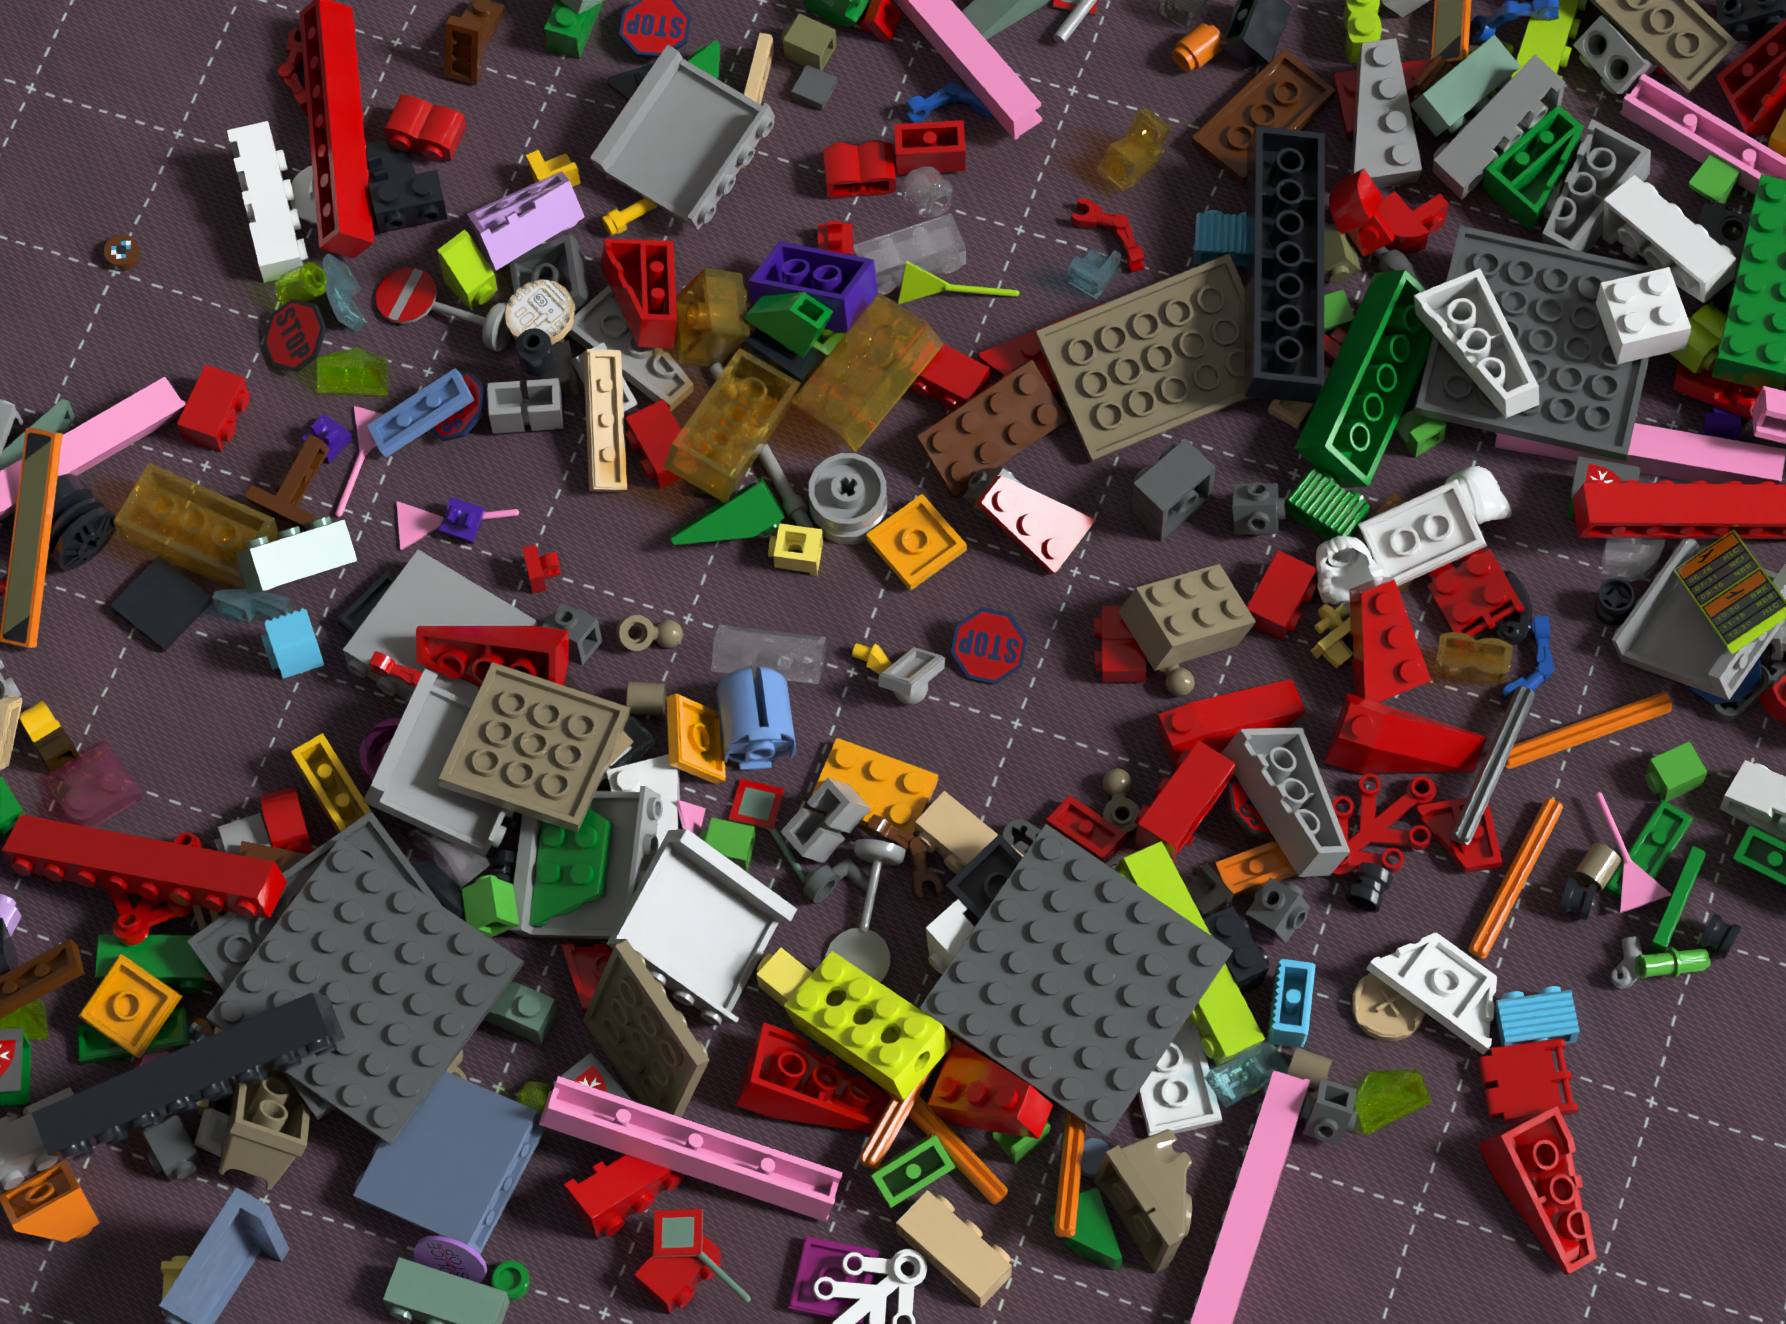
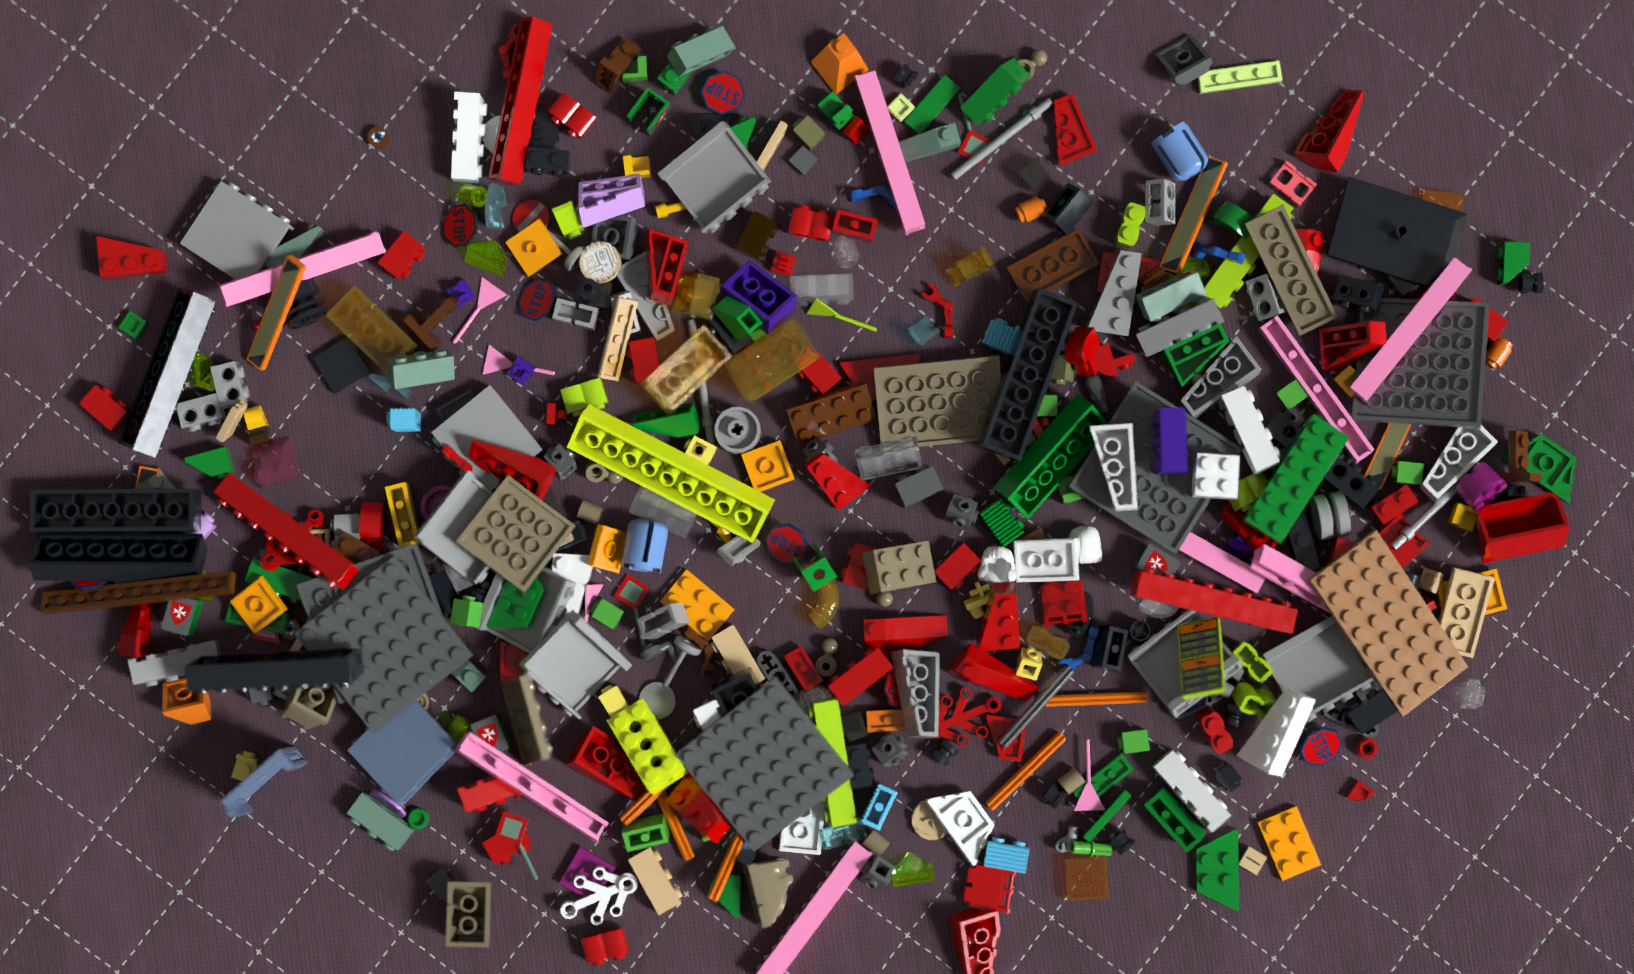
camera: 15 degrees right, 20 degrees up
(420, 412) = (516, 299): medium blue plate -> none
(425, 333) = (534, 247): none -> light orange plate
(508, 39) = (636, 71): none -> bright green panel
(536, 63) = (641, 101): none -> green piece
(579, 527) = (581, 395): none -> lime brick
(760, 590) = (670, 473): none -> neon yellow brick
(778, 209) = (756, 235): none -> dark brown brick
(1037, 671) = (808, 571): none -> green piece
(1088, 712) = (827, 604): none -> clear yellow cylinder
(1107, 462) = (888, 458): none -> clear brick
(1456, 702) = (1029, 657): none -> light yellow brick
(1551, 281) = (1169, 441): none -> dark purple brick
(1578, 639) = (1109, 648): none -> black brick
(1684, 1015) = (1086, 878): none -> clear orange plate

